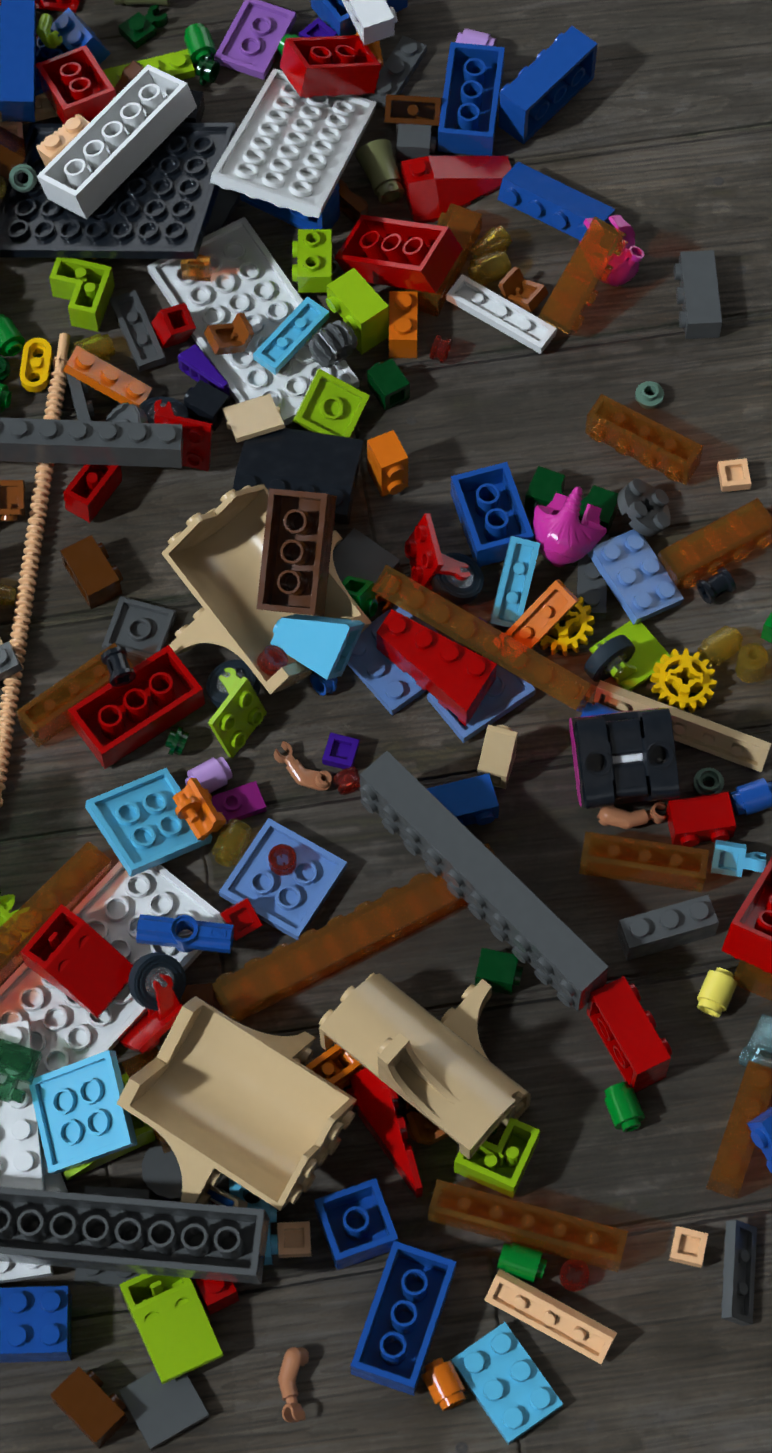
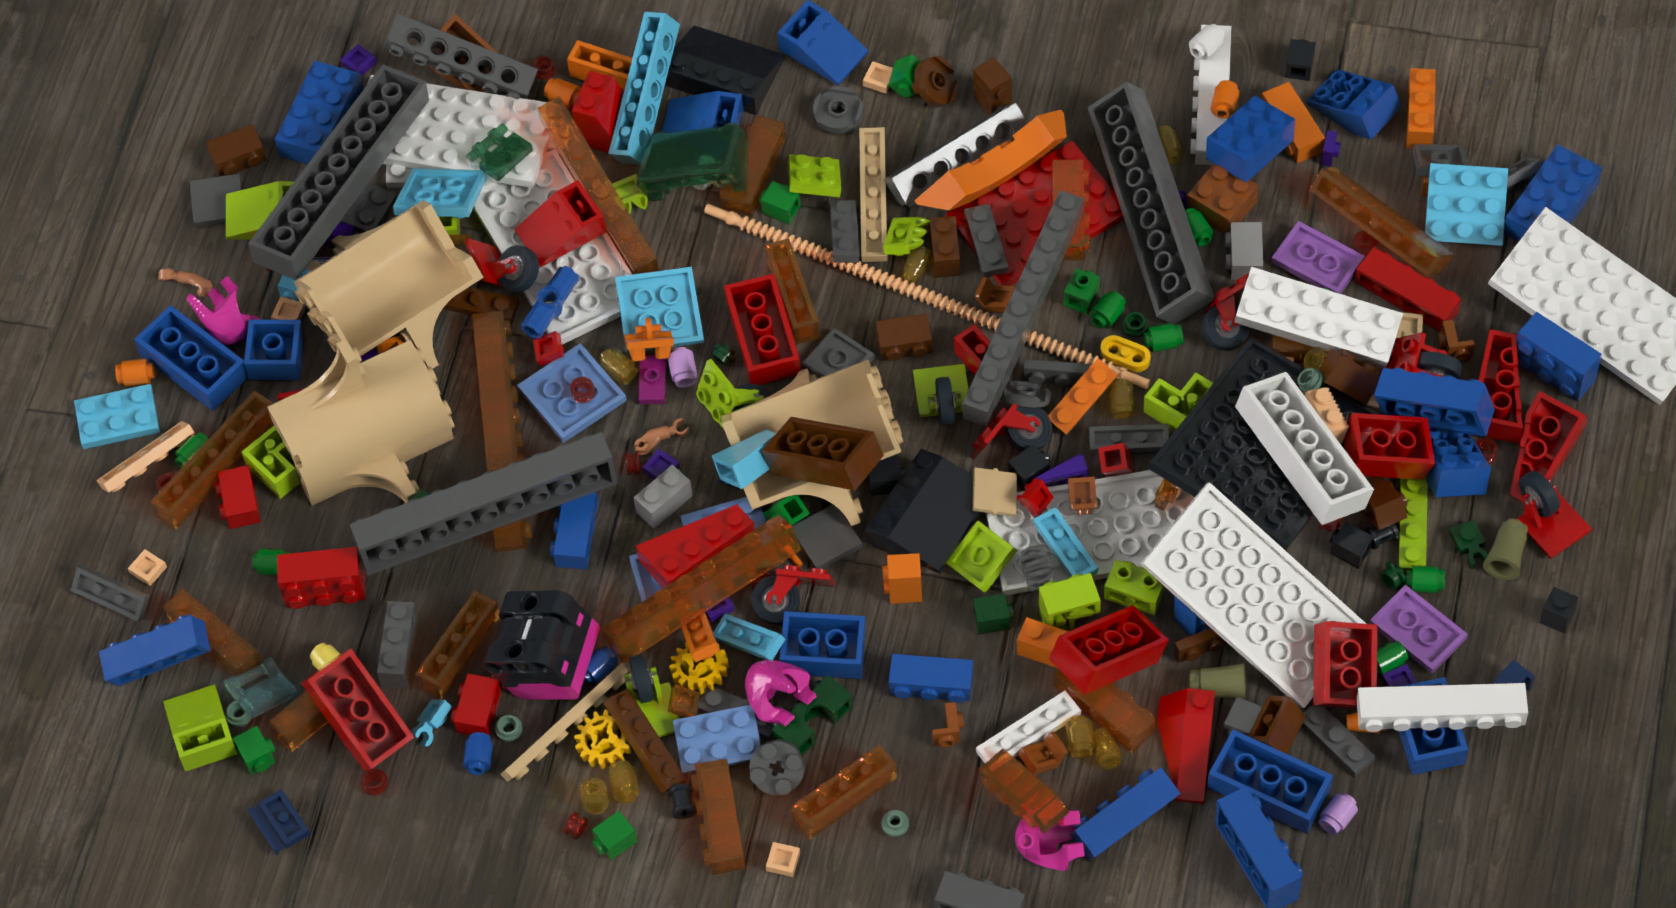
camera: 115 degrees right, 5 degrees down
(49, 38) = (1464, 437): lime arm -> none
(118, 666) = (789, 311): black bush -> none
(150, 511) = (941, 391): none -> lime plate
(248, 377) = (1036, 497): none -> red tile
(272, 659) = (745, 416): clear red bush -> none
(342, 1287) = (224, 320): none -> dark pink piece
(379, 731) = (663, 496): none -> light grey brick
(440, 349) = (1011, 668): clear red bush -> none
(482, 412) = (931, 678): none -> blue brick
(498, 754) = (599, 572): tan slope -> none
(527, 376) = (951, 735): none -> dark orange bracket
(560, 1181) = (238, 497): none -> red brick
(610, 620) = (683, 701): none -> clear orange plate
(672, 636) = (644, 740): none -> reddish brown plate

